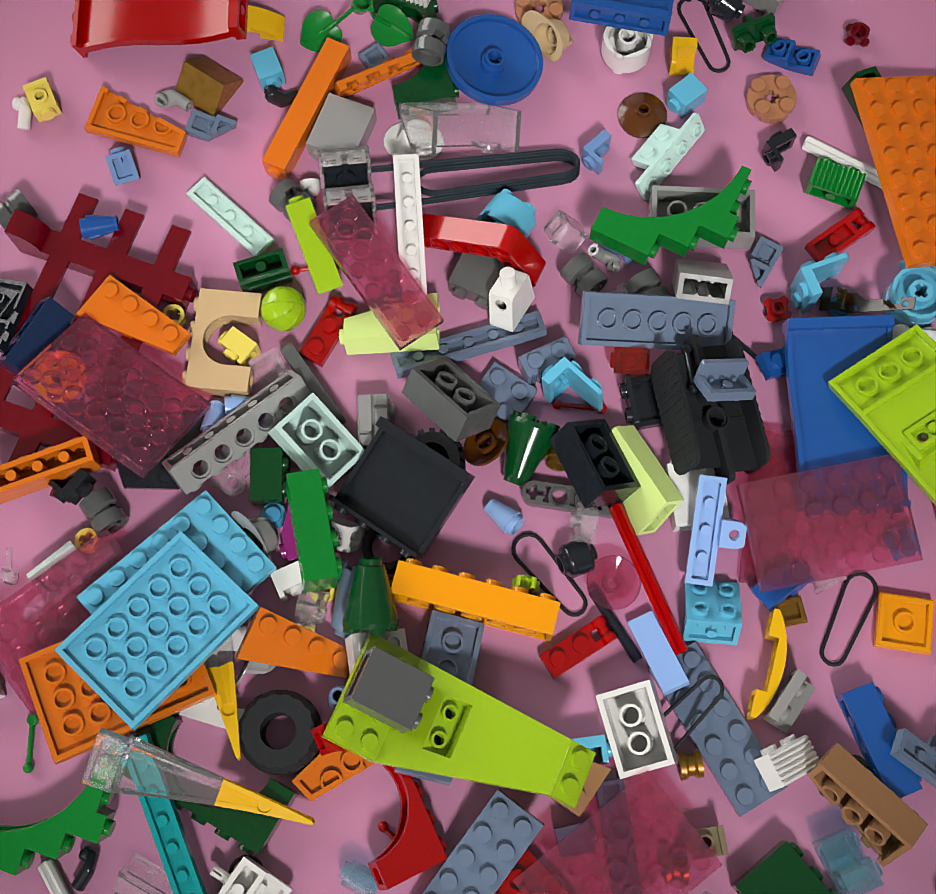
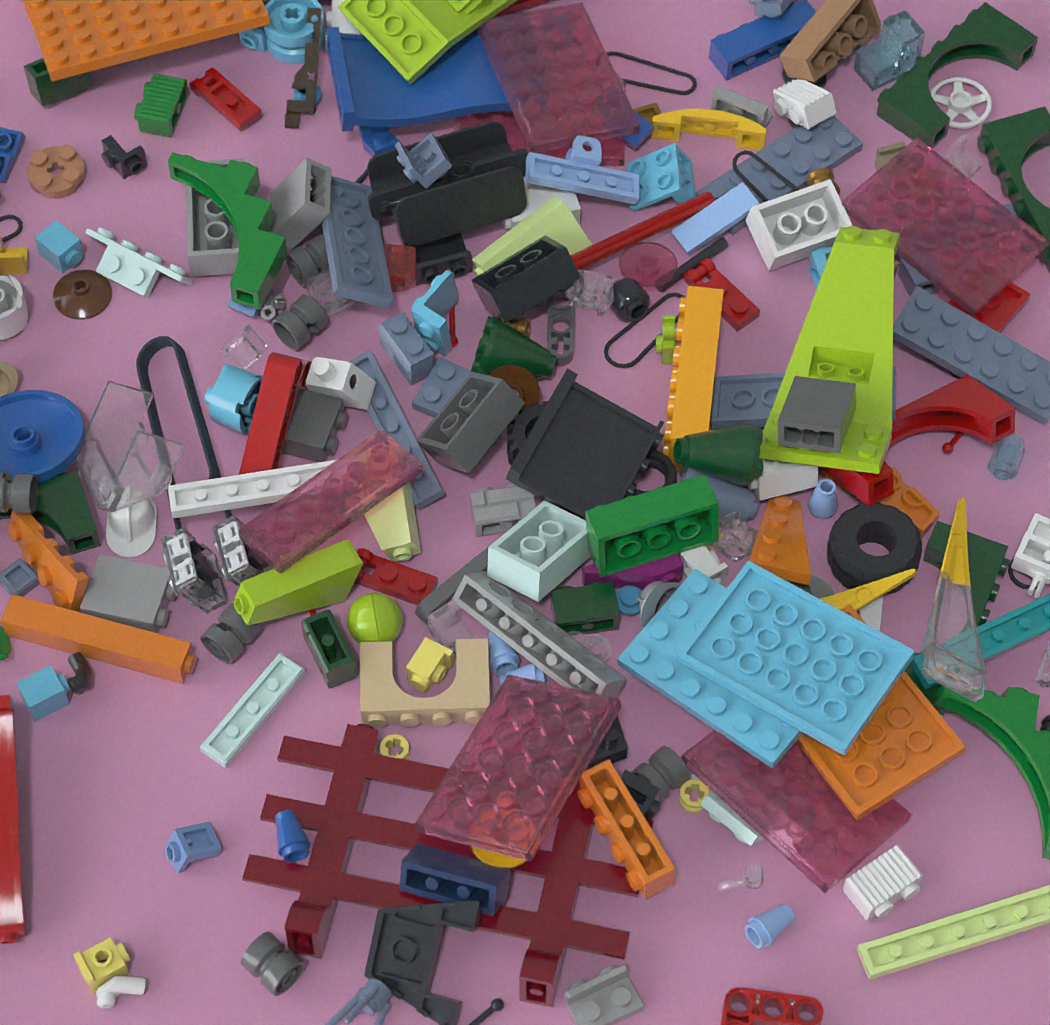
camera: 100 degrees left, 15 degrees down
(32, 720) = (917, 818): green hinge -> none
(124, 122) = (129, 853): orange wing -> none
(133, 317) = (409, 776): orange wing -> none
(172, 98) = (87, 805): light grey arm -> none
(207, 84) = (67, 765): pearl gold slope -> none
(208, 127) = (126, 757): sand blue slope -> none
(311, 186) = (204, 621): white hinge -> none
(505, 517) = (594, 369): light blue cone -> none
(595, 150) = (136, 329): medium blue bracket -> none
(763, 259) = (267, 166): sand blue slope -> none
(777, 316) = (317, 154): red plate -> none
(805, 286) = (292, 115): medium azure bracket -> none
(824, 150) = (135, 95): white axle -> none
(904, 623) = (642, 28): light orange tile -> none

